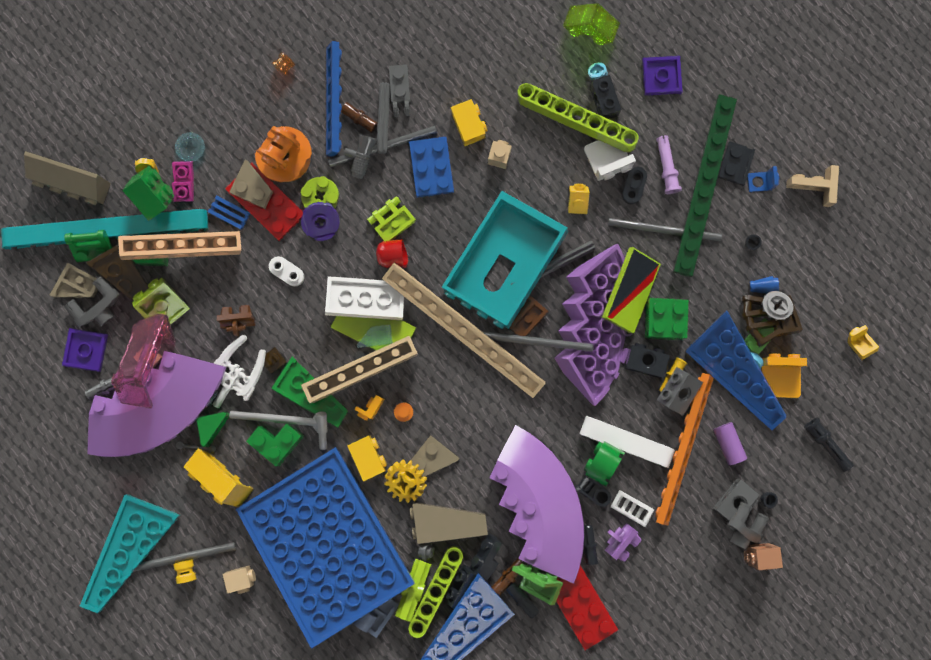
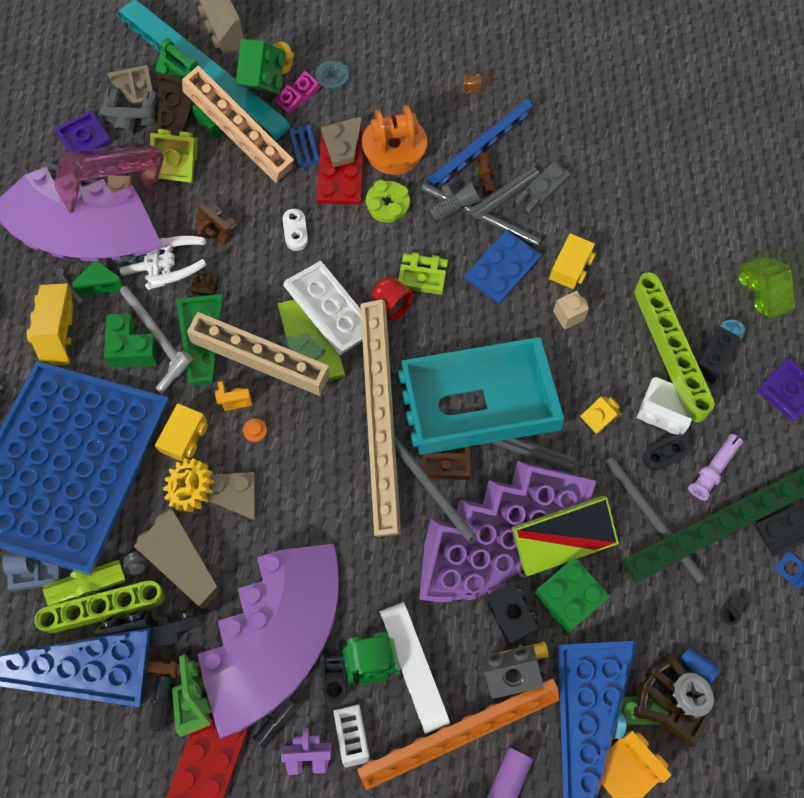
camera: 45 degrees right, 15 degrees down
(313, 229) = (352, 218): dark purple plate -> none

